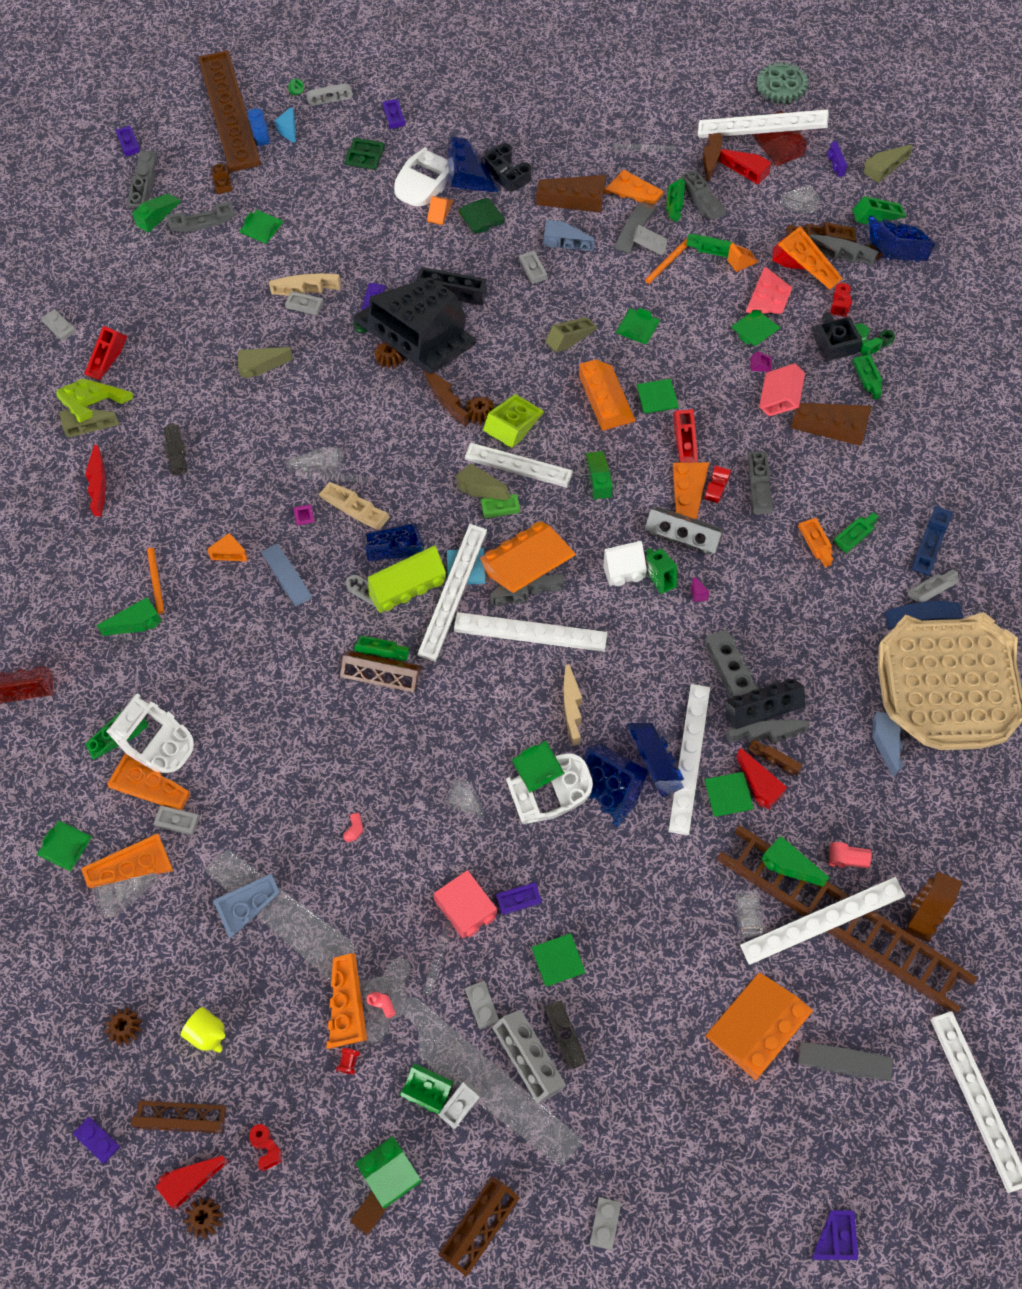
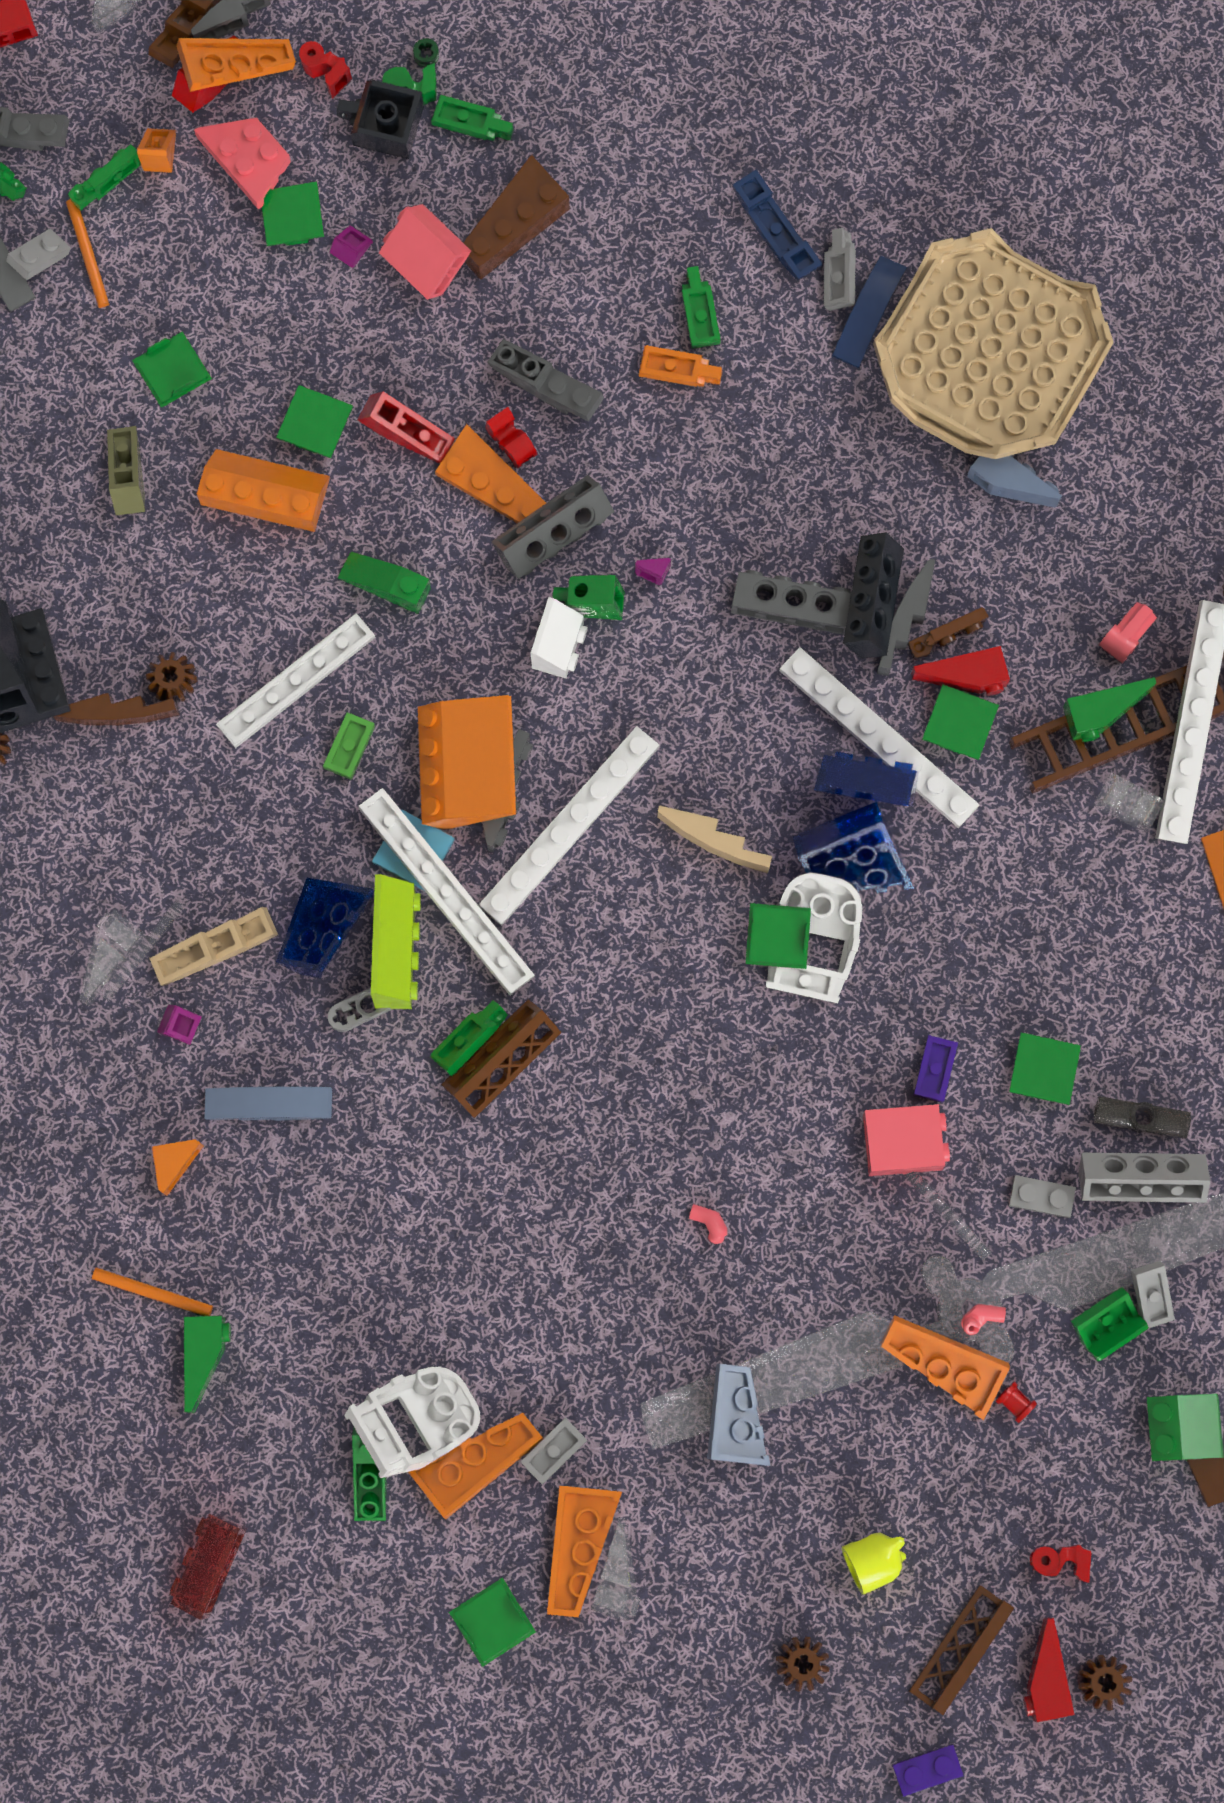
camera: 60 degrees left, 15 degrees up
(464, 799) = (760, 1056): clear slope -> none
(480, 484) = (300, 753): olive slope -> none
(512, 420) = (219, 642): lime slope -> none

